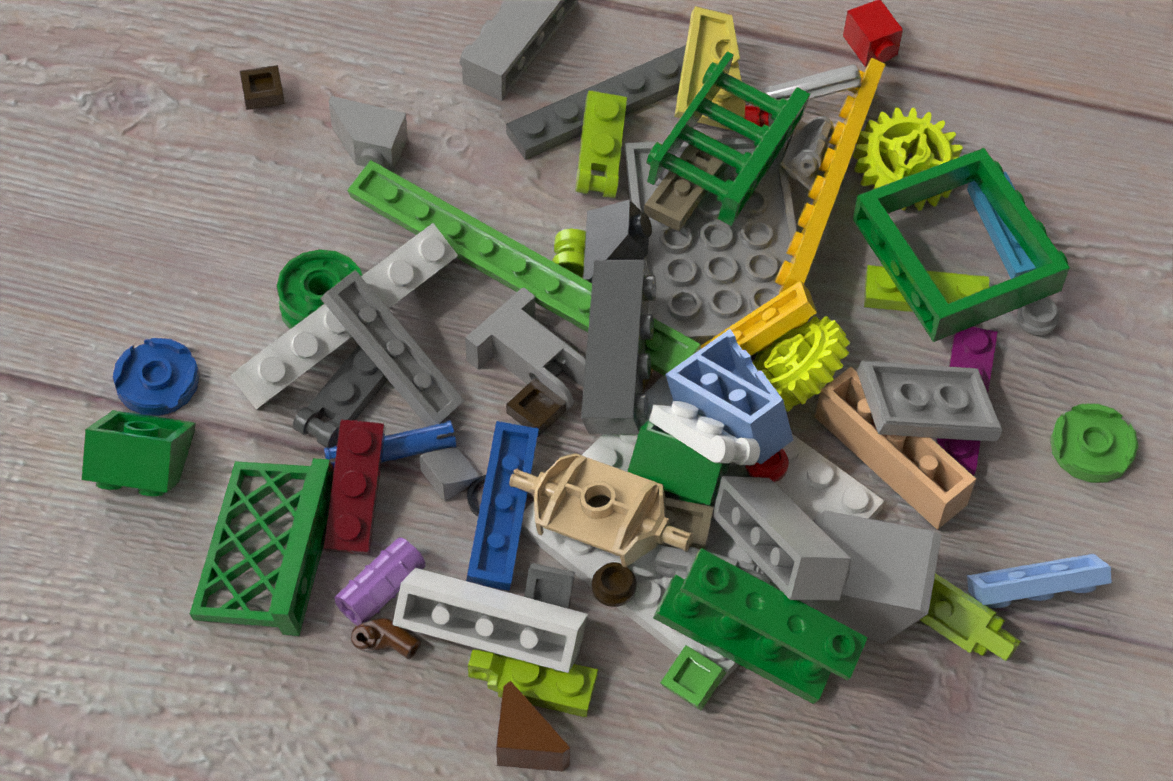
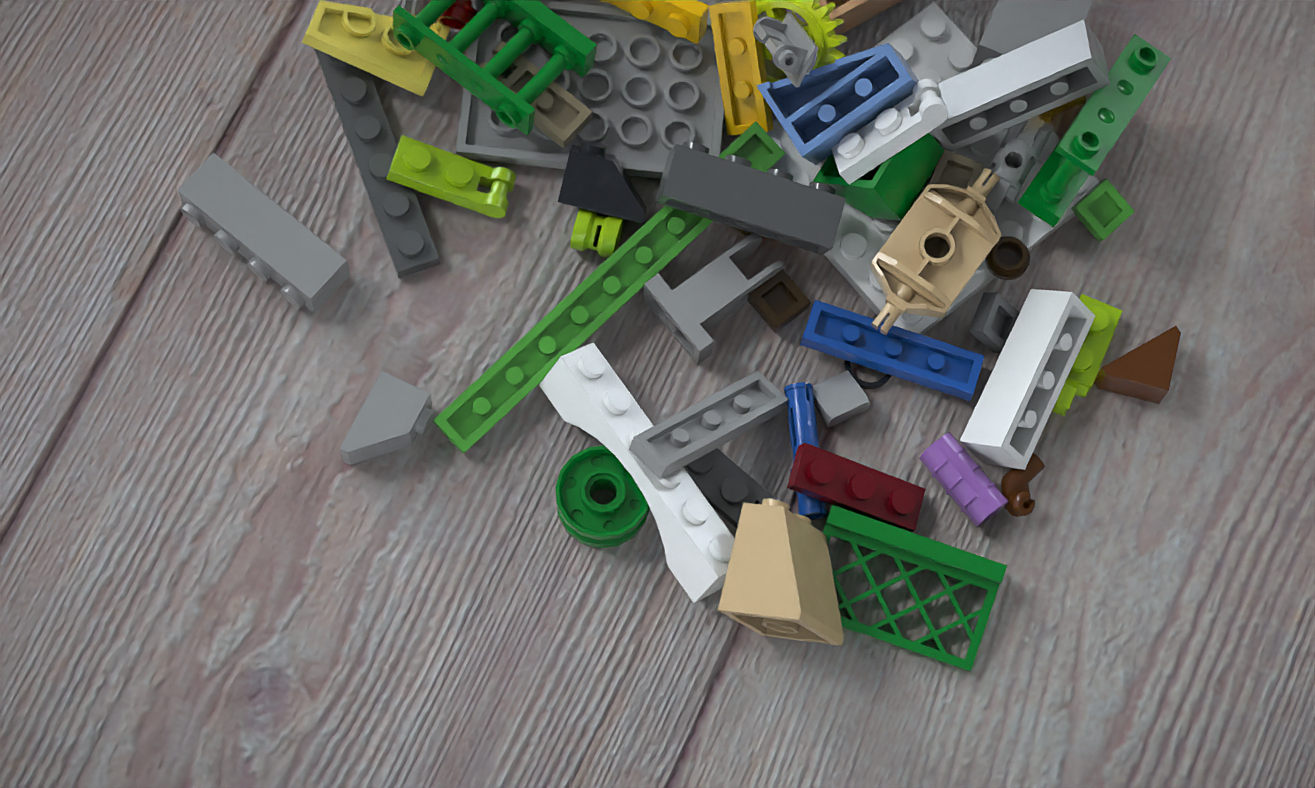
camera: 85 degrees left, 15 degrees up
(136, 452) = (774, 705): green slope -> none
(156, 377) = (672, 685): blue tile -> none
(251, 422) = (781, 576): none -> tan slope
(262, 87) = (289, 531): dark brown plate -> none
(765, 330) = (789, 45): none -> light grey hinge

